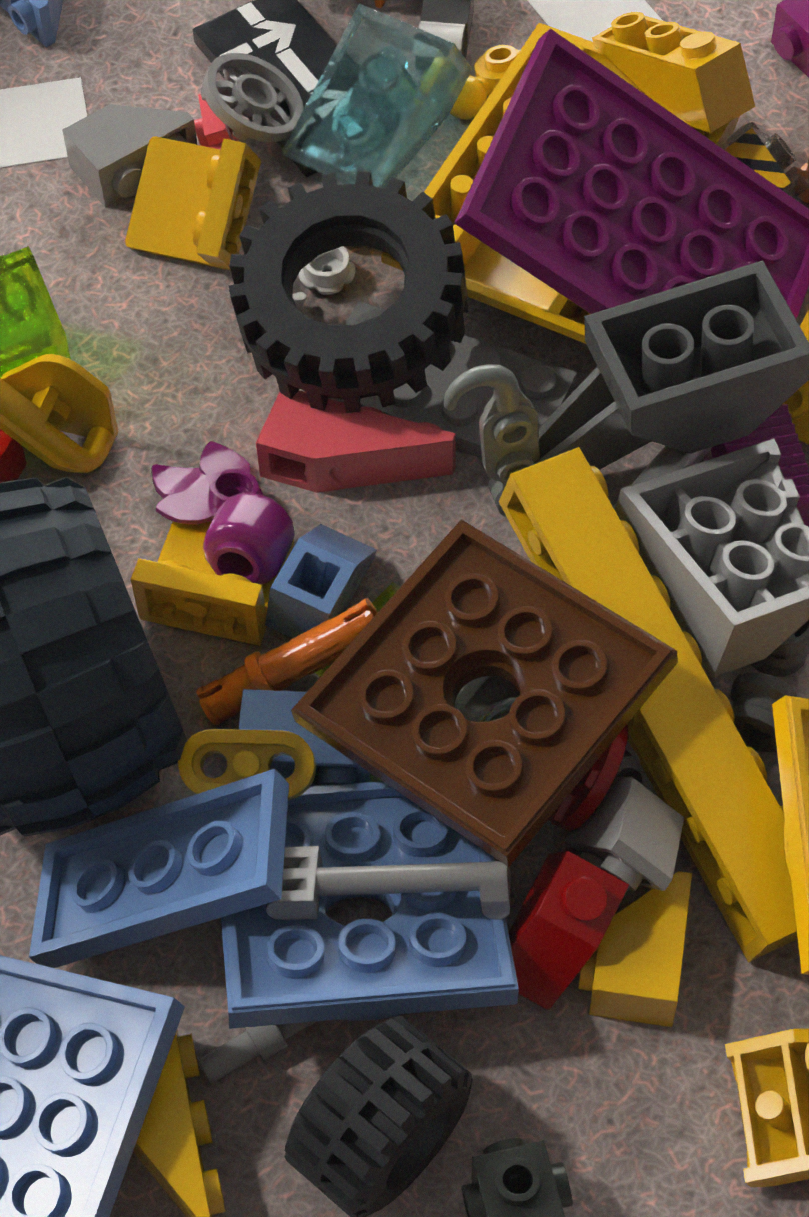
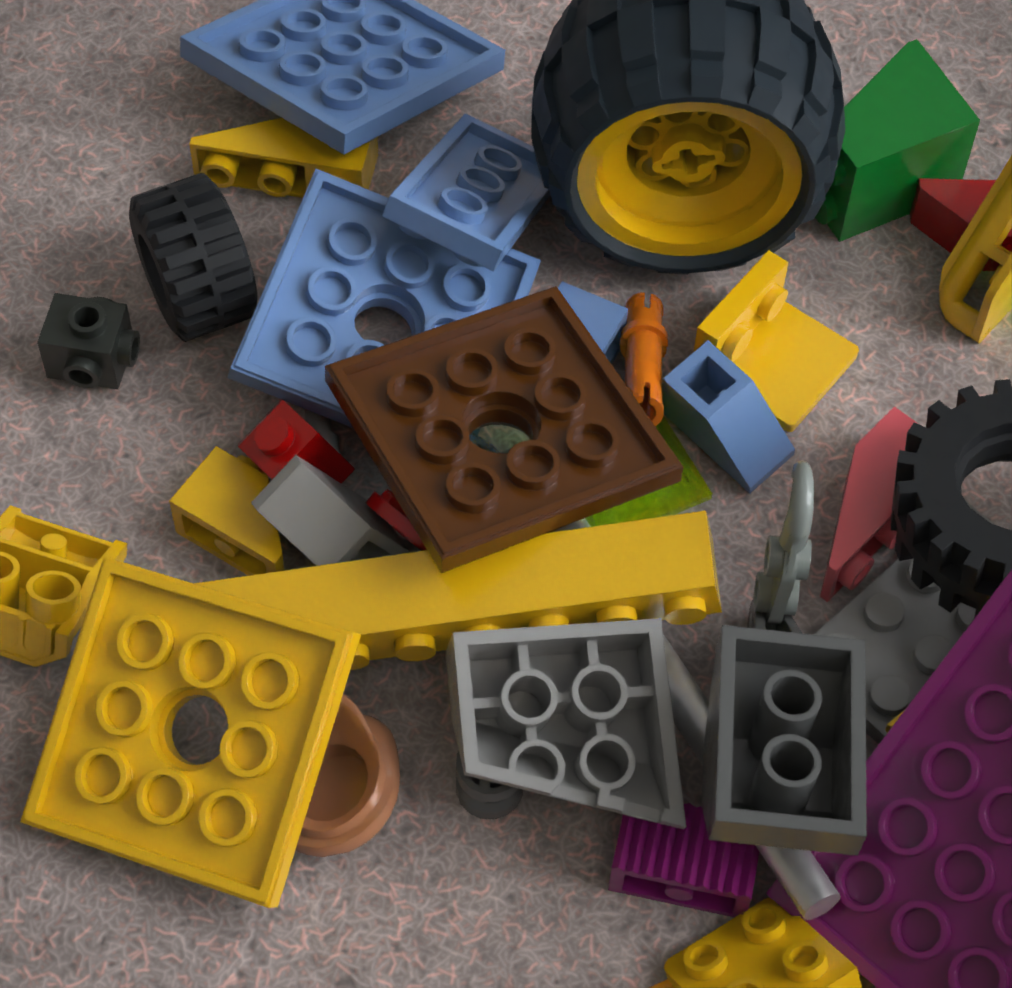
camera: 110 degrees right, 0 degrees up
(197, 493) = (879, 375): plate -> none
(246, 755) = (546, 259): yellow plate -> none
(249, 538) = (787, 366): magenta head -> none
(306, 881) = (400, 270): light grey hinge -> none
(752, 708) = (415, 715): dark grey wheel -> none

